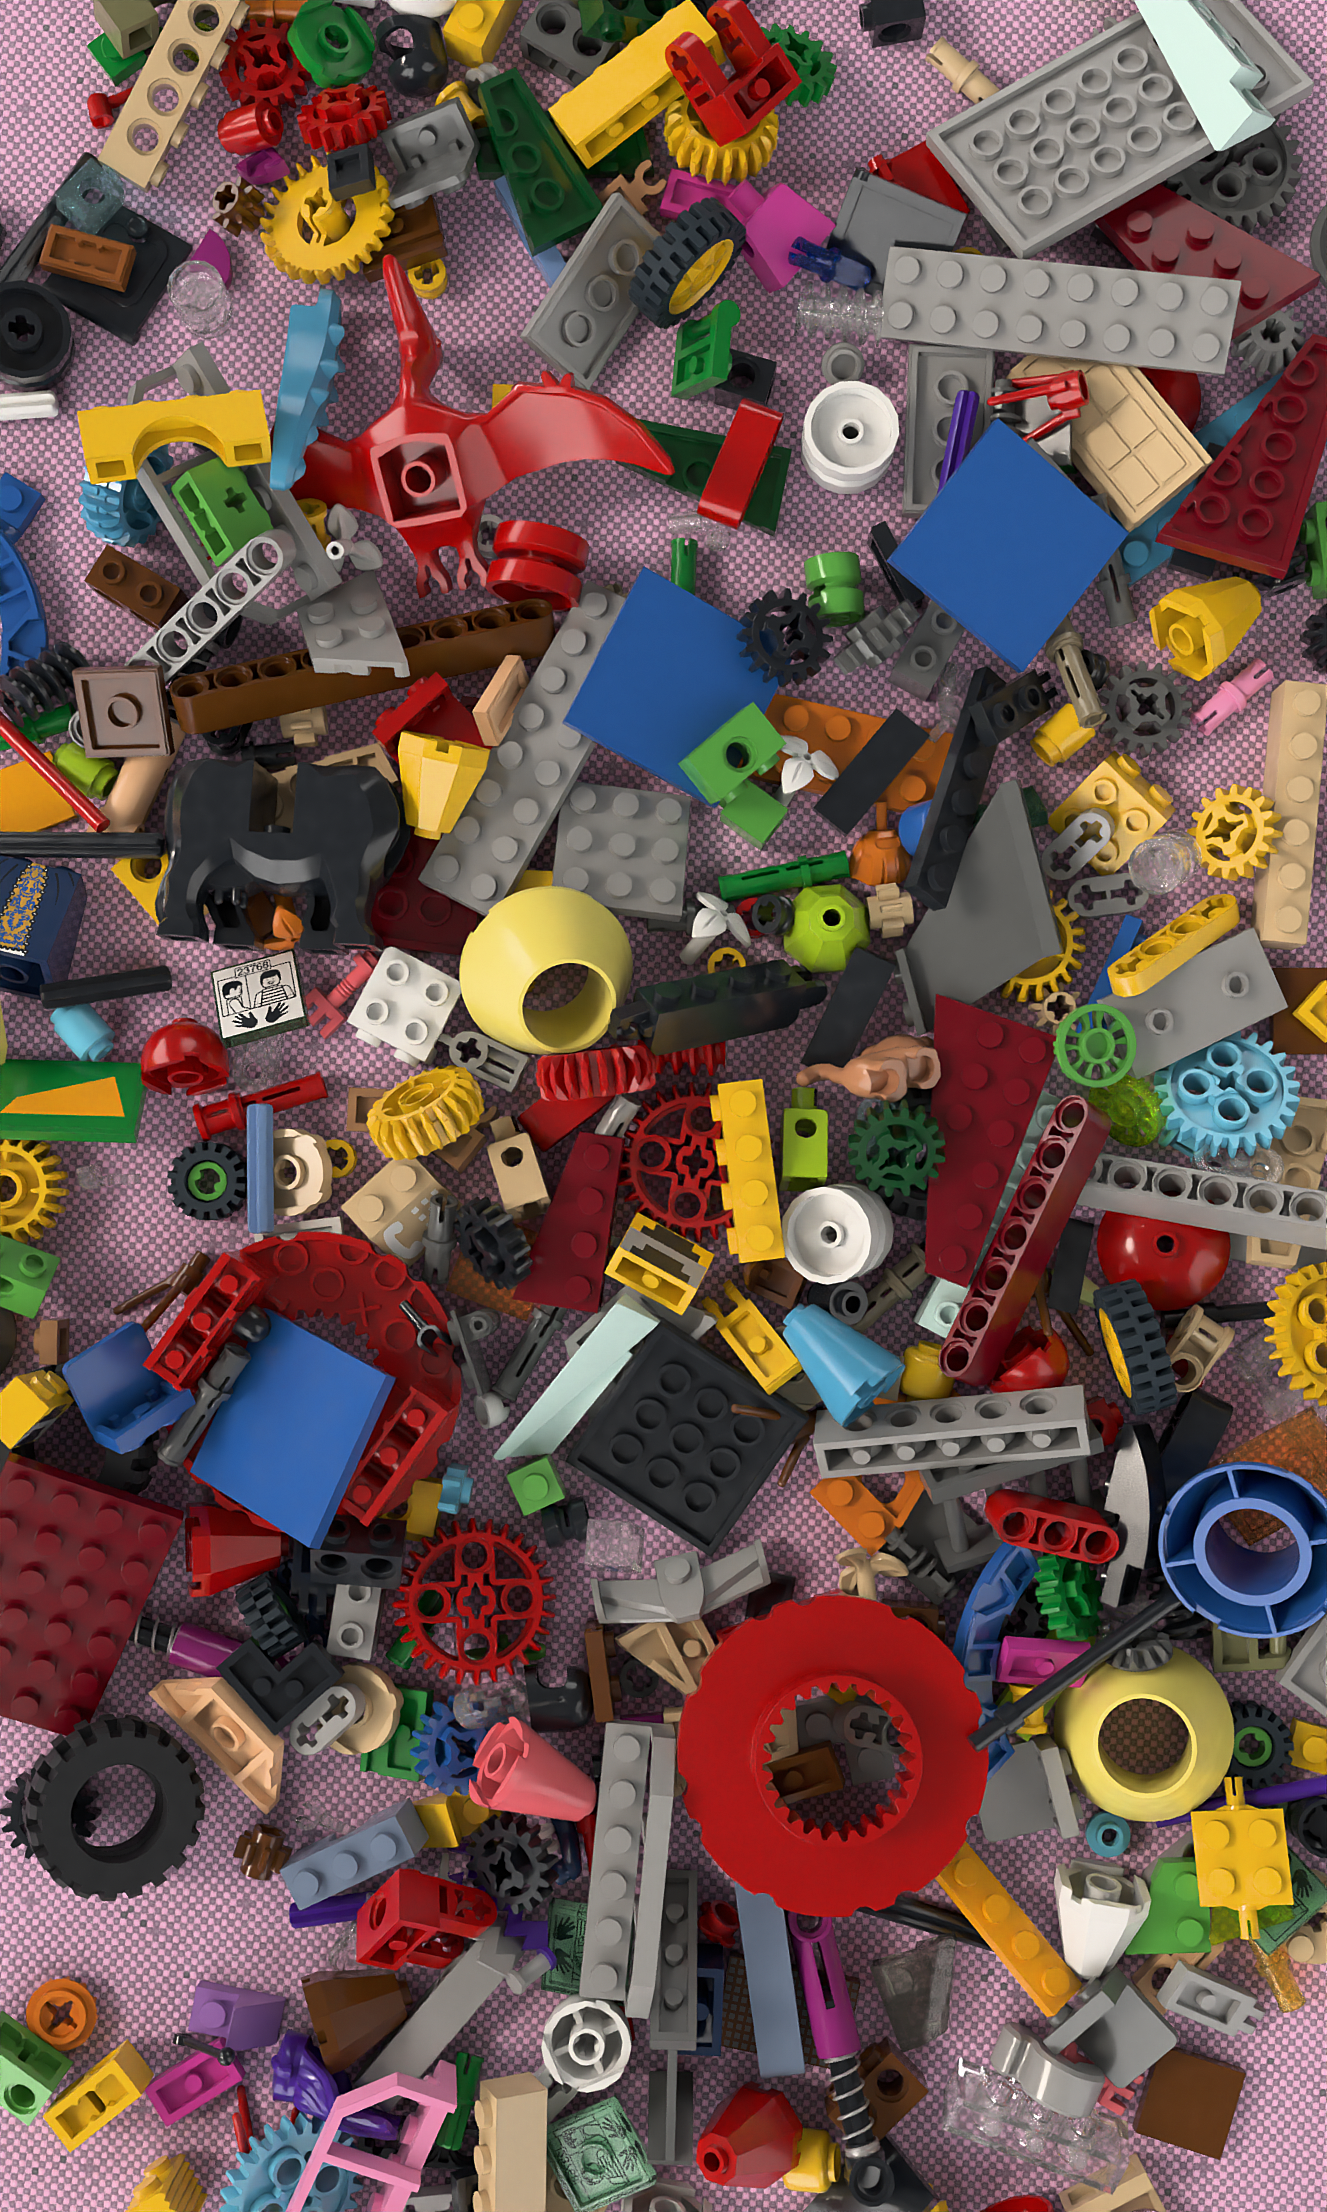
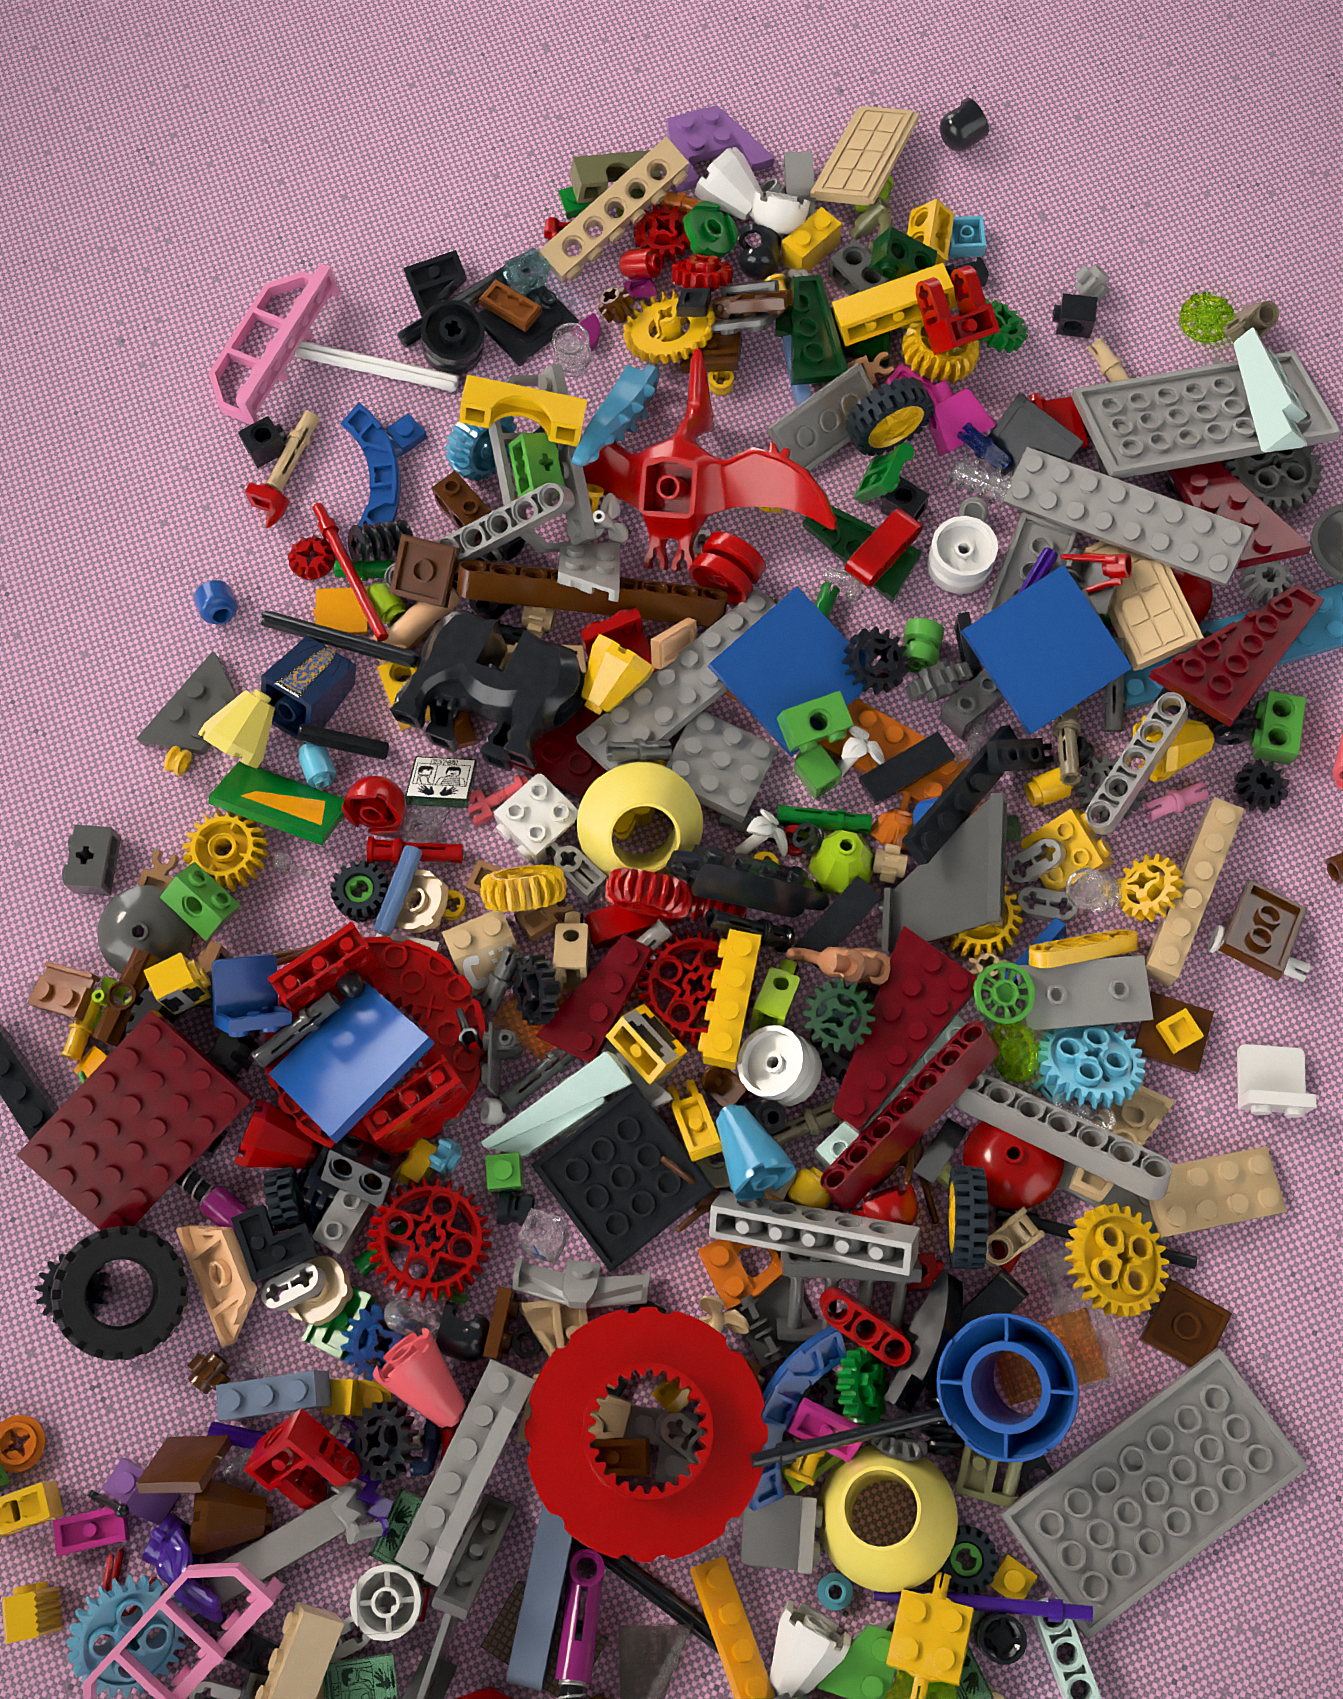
camera: 20 degrees right, 15 degrees down
(279, 1974) = (184, 1464): none -> reddish brown tile
(286, 925) = (476, 739): orange plant -> none
(435, 145) = (751, 303): none -> reddish brown hinge
(455, 2124) = (275, 1617): green axle -> none
(511, 876) = (638, 750): none -> dark grey pin
(702, 1075) = (770, 933): none -> black pin
(709, 2000) = (485, 1608): dark blue slope -> none
(719, 1922) = (518, 1550): red plate -> none
(1174, 652) = (1137, 748): none -> light grey beam

